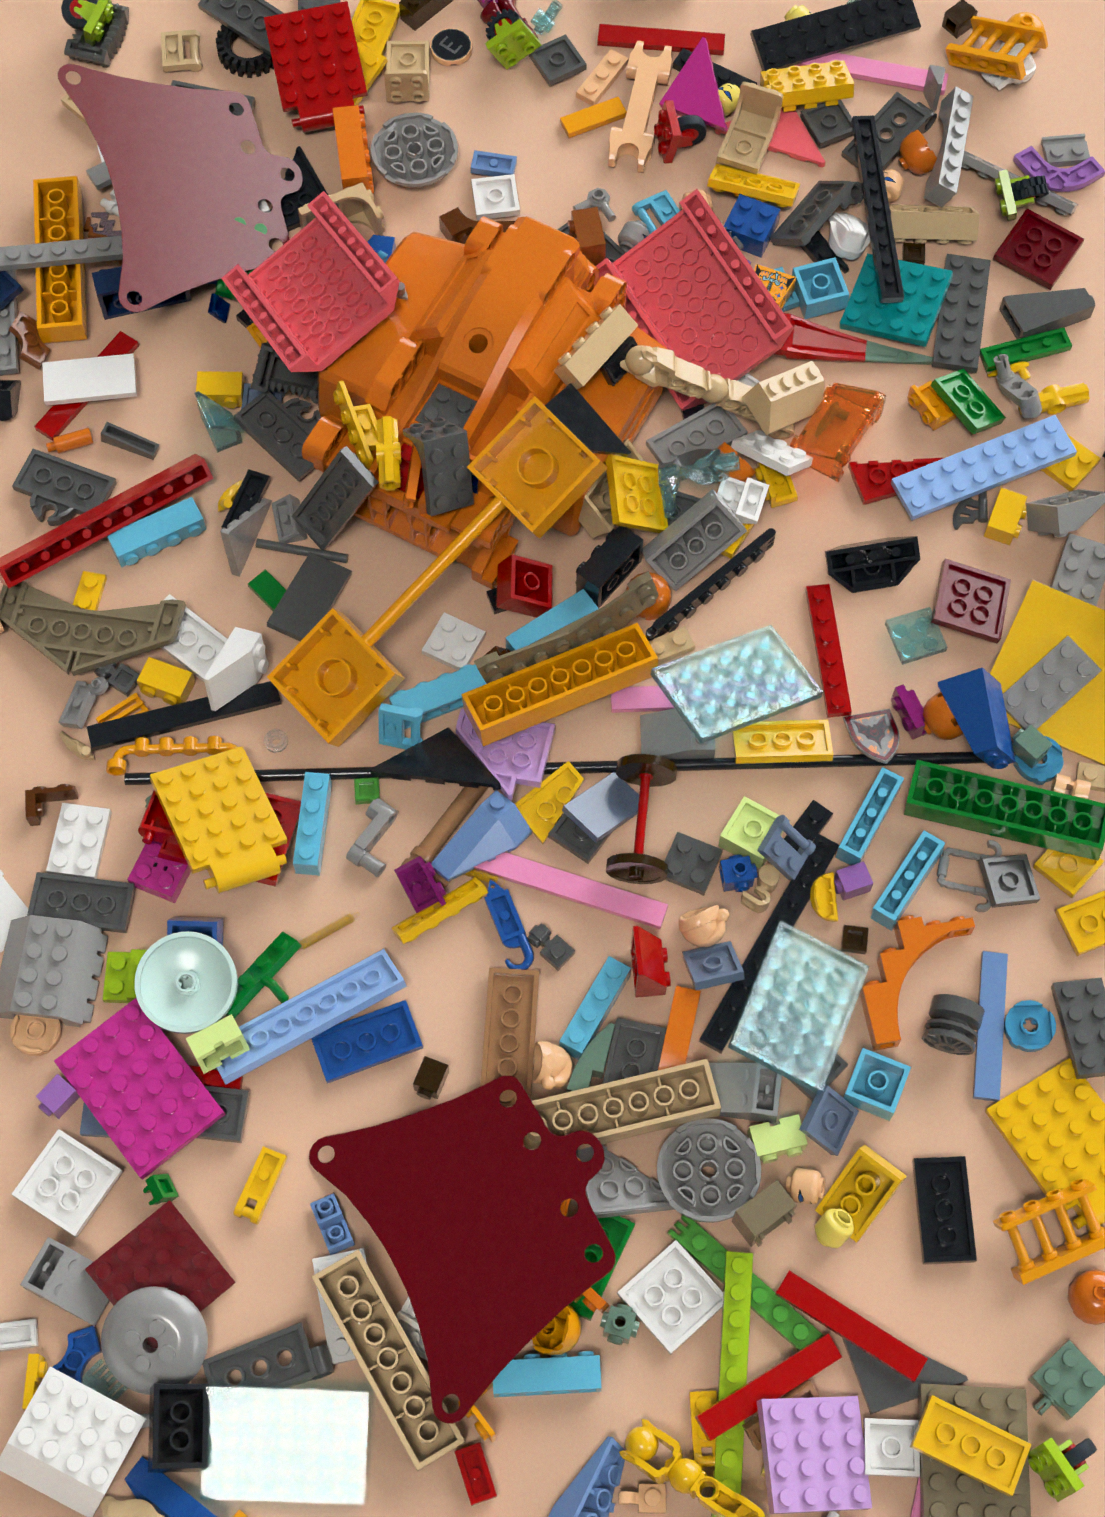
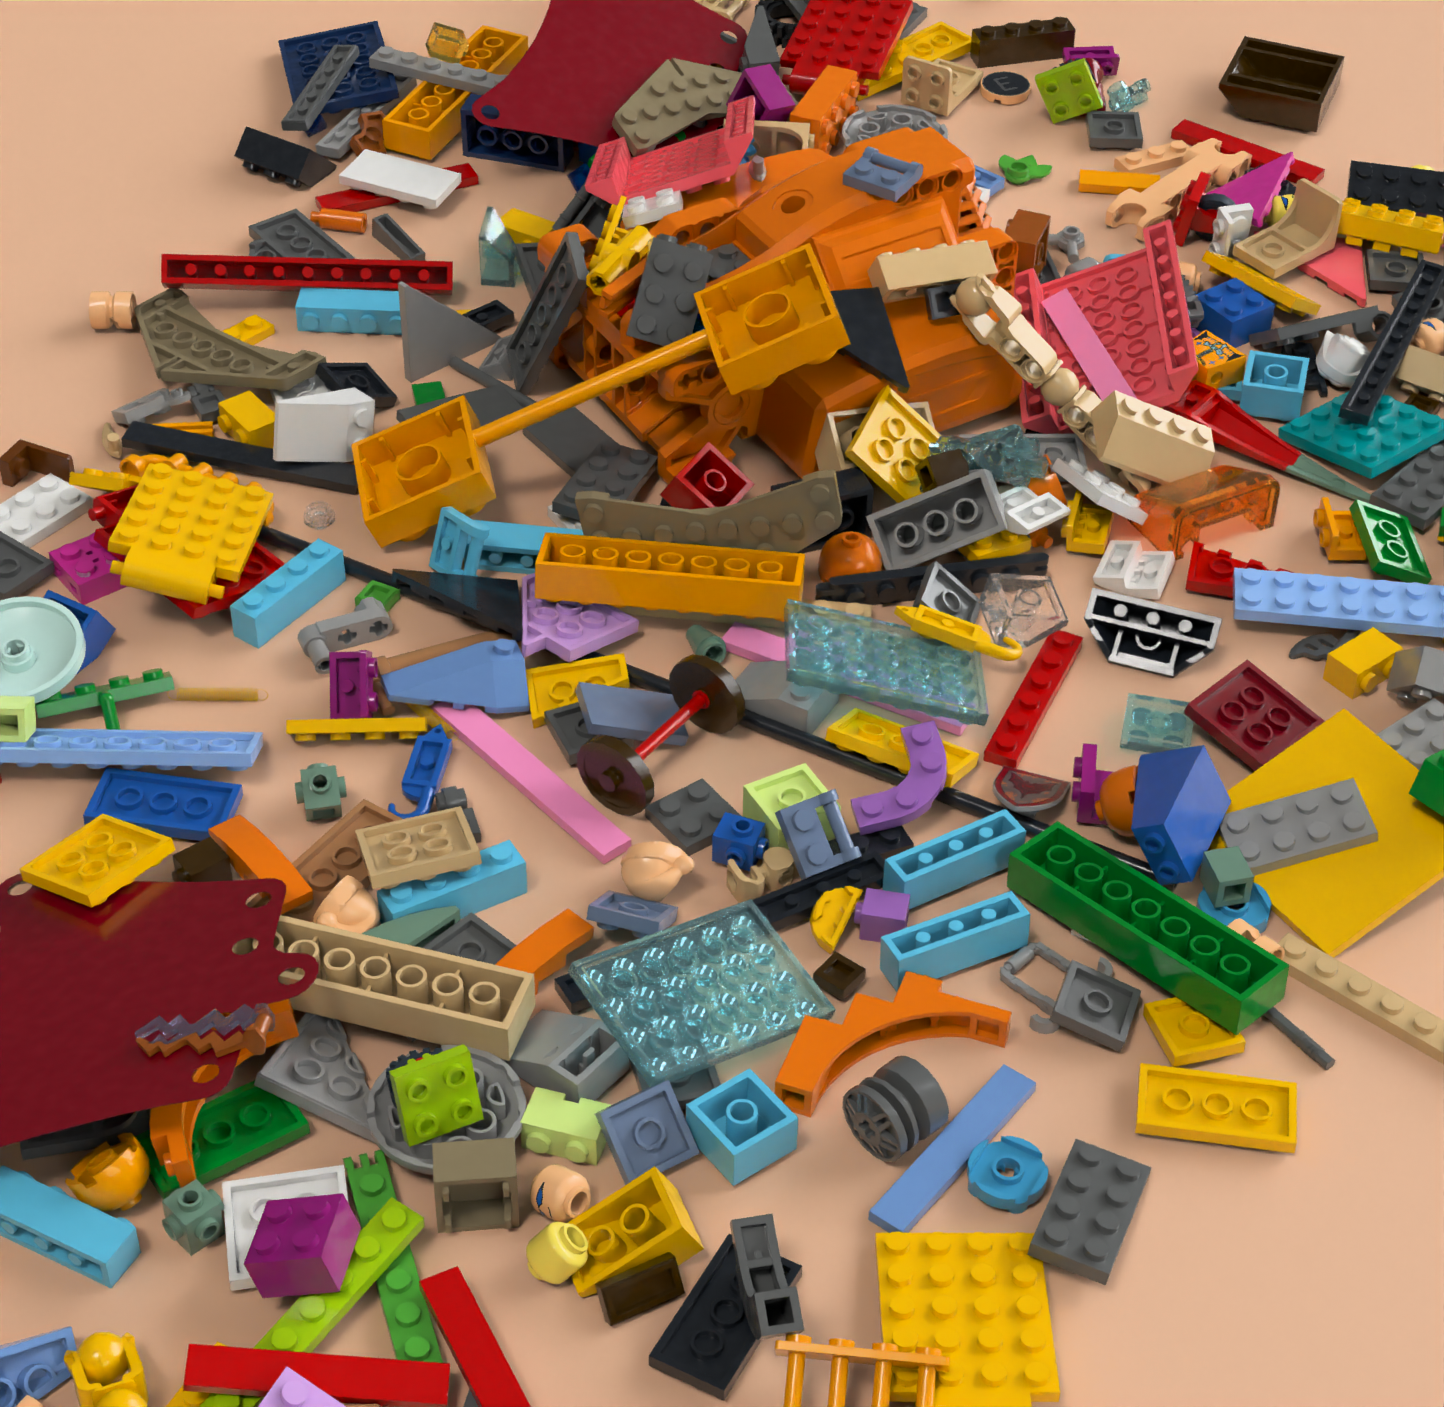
camera: 30 degrees right, 25 degrees down
(32, 225) = (446, 43): none -> clear yellow brick
(125, 796) = (103, 481): none -> yellow plate
(215, 608) = (358, 375): none -> black plate
(248, 188) = (672, 101): none -> dark tan wing
(270, 117) = (760, 45): none -> dark grey slope
(310, 174) = (771, 96): none -> magenta brick
(352, 366) = (643, 211): none -> white plate
(371, 1114) = (97, 860): none -> yellow plate
(391, 574) = (566, 438): none -> dark grey tile
(452, 615) = (609, 470): none -> dark grey plate
(460, 978) = (321, 791): none -> sand green brick
(466, 1055) = (259, 858): none -> orange slope
(518, 133) = (1023, 169): none -> bright green plate
(530, 297) = (880, 181): none -> sand blue plate
(558, 1227) = (188, 1034): none -> piece
(563, 996) = (418, 848): none -> tan plate
(605, 718) = (706, 643): none -> sand green cone
(648, 964) = (548, 863): red slope -> none
(680, 503) = (941, 469): none -> dark brown brick
(698, 329) = (1085, 345): none -> bright pink tile
(704, 1171) = (434, 1092): none -> lime plate
(708, 145) = (1230, 227): none -> white bracket
(708, 1316) = (302, 1246): none -> magenta brick
(736, 604) = (947, 594): none -> dark grey plate
(760, 630) = (956, 632): none -> yellow plate
(783, 584) = (1021, 608): none -> clear slope
(821, 774) = (915, 792): none -> medium lavender plate
(823, 503) = (1134, 571): none -> white slope
(890, 1222) = (640, 1288): none -> dark brown tile
(972, 1198) = (767, 1299): none -> dark grey arch

